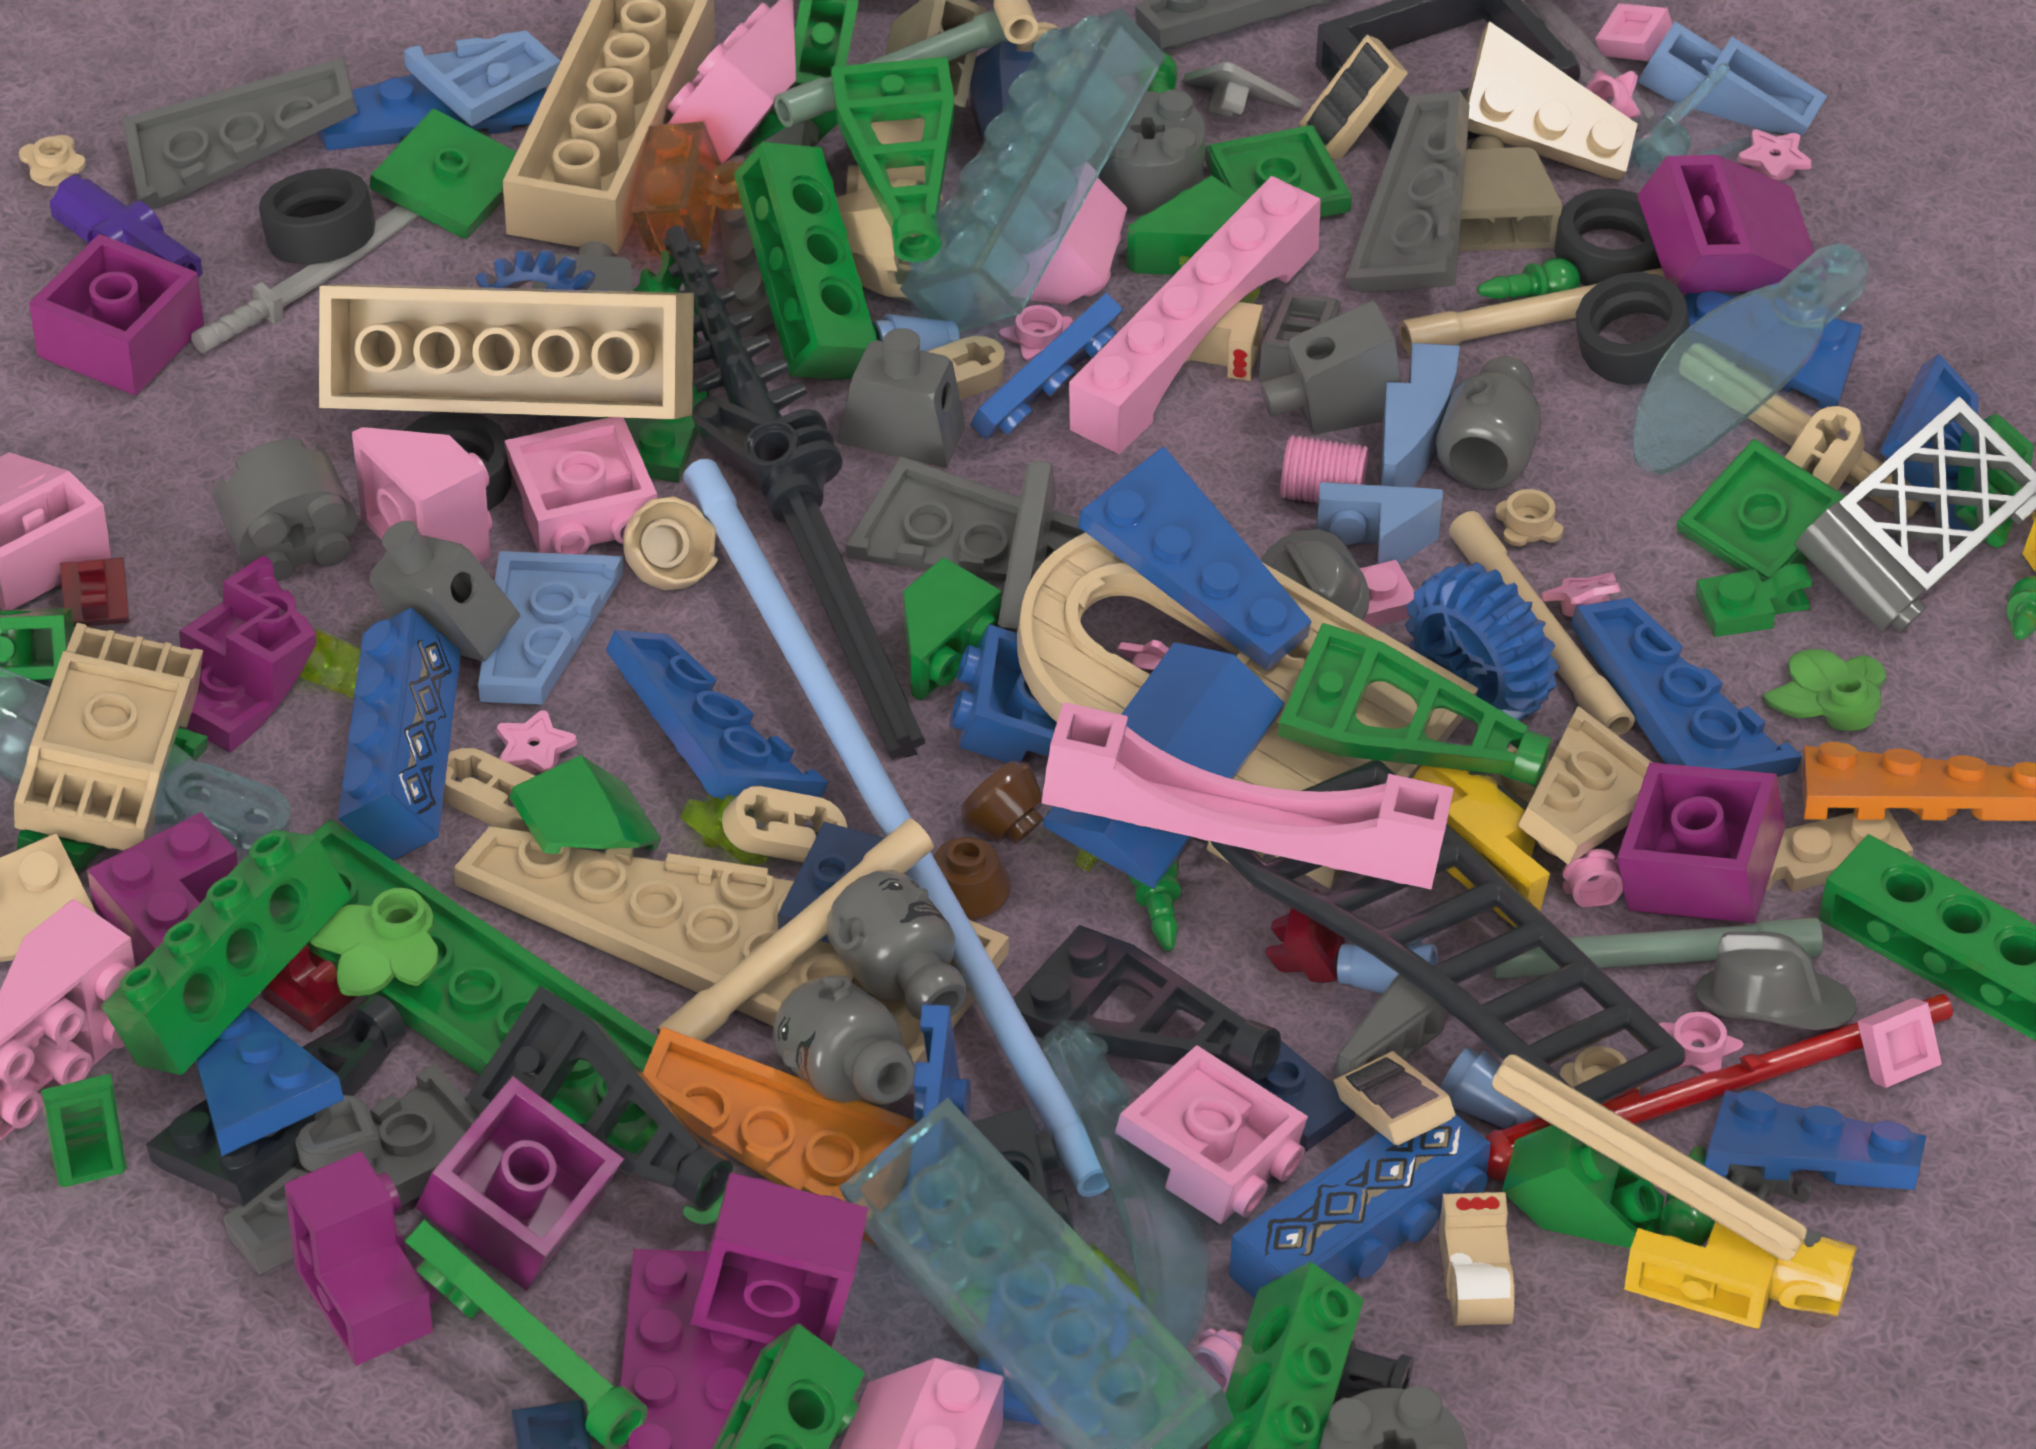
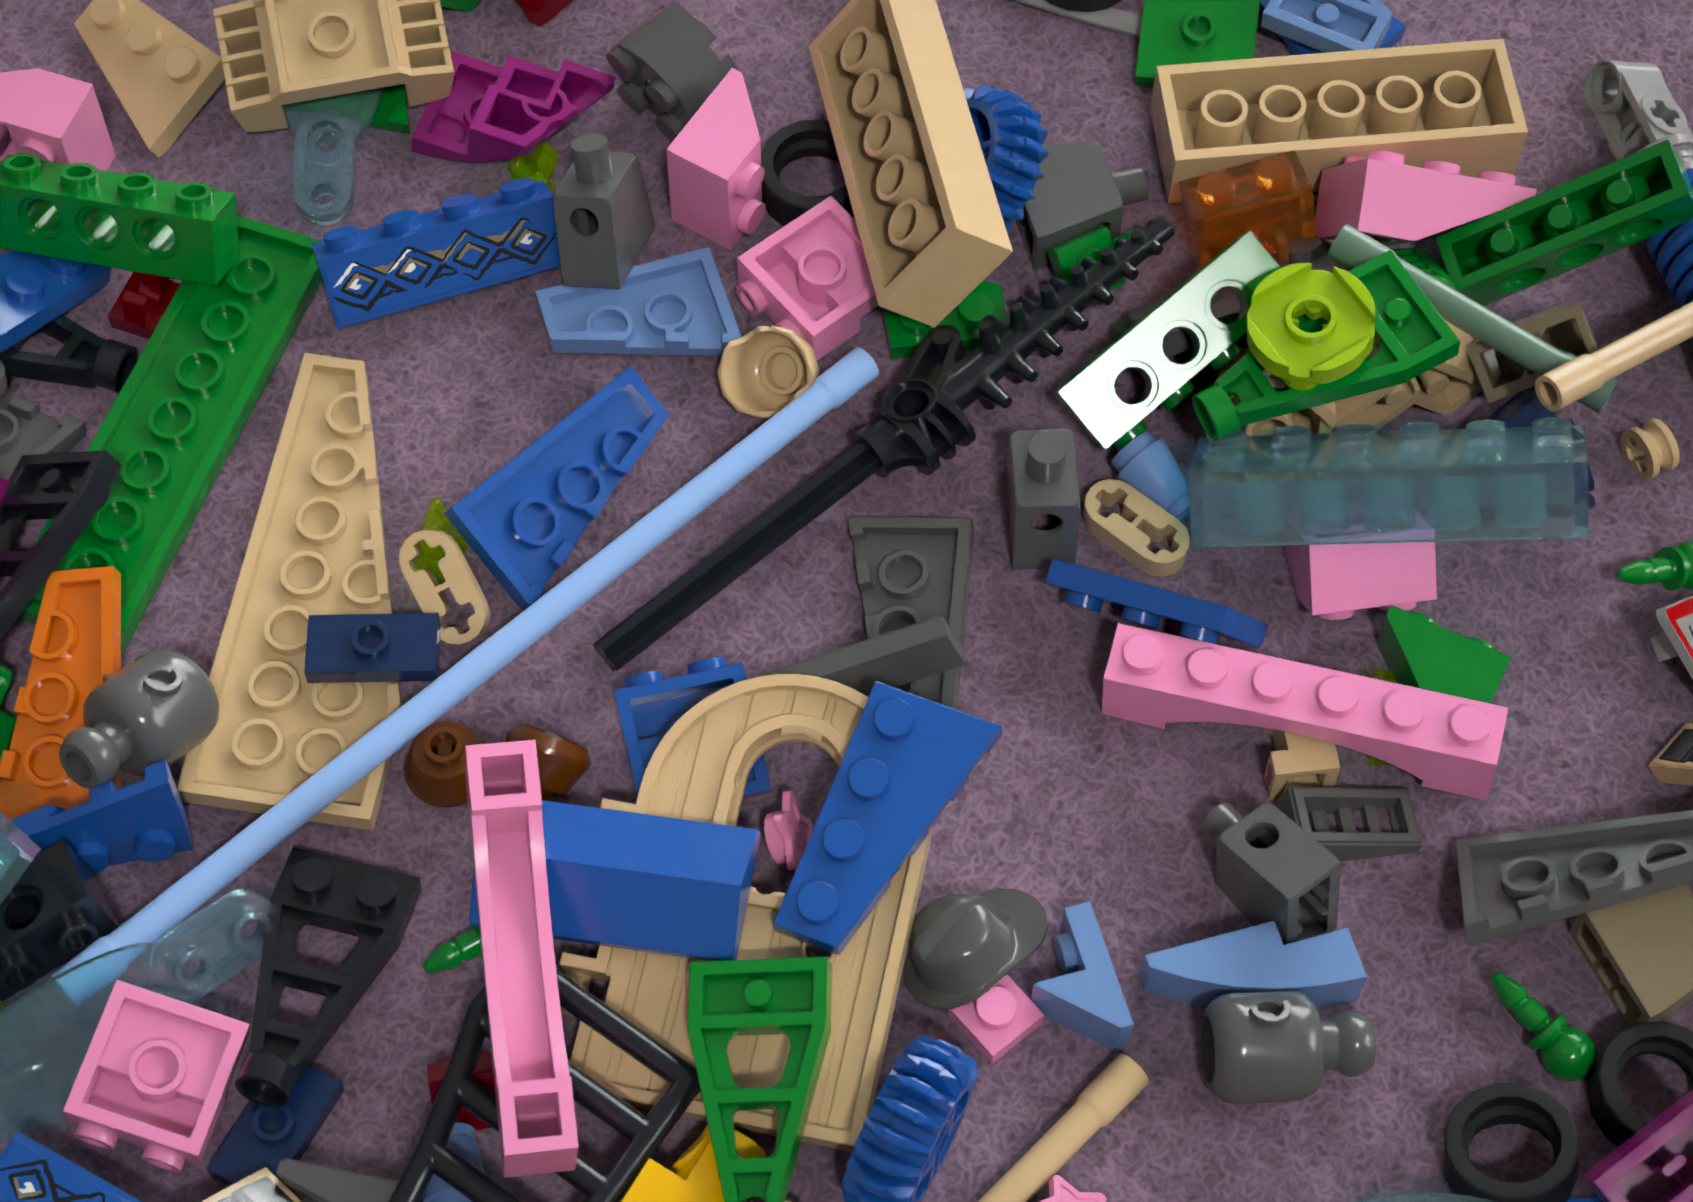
camera: 70 degrees right, 15 degrees up
(160, 881) = (200, 146): magenta brick -> none
(381, 942) = (175, 333): bright green plate -> none
(487, 796) = (439, 355): tan beam -> none
(539, 757) = (498, 376): bright pink plate -> none
(582, 809) = (403, 431): green slope -> none
(713, 1006) = (357, 670): tan piece -> none
(890, 156) = (1307, 357): none -> lime plate
(896, 942) = (275, 721): dark grey piece -> none
(942, 617) = (760, 626): green slope -> none
(1033, 320) = (1240, 570): bright pink plate -> none
(1157, 152) = (1534, 596): dark grey brick -> none
(1288, 155) = (1579, 728): green plate -> none
(1317, 461) = (1134, 905): bright pink piece -> none
(1456, 327) = (1435, 969): tan piece -> none
(1528, 518) = (1173, 1112): tan plate -> none

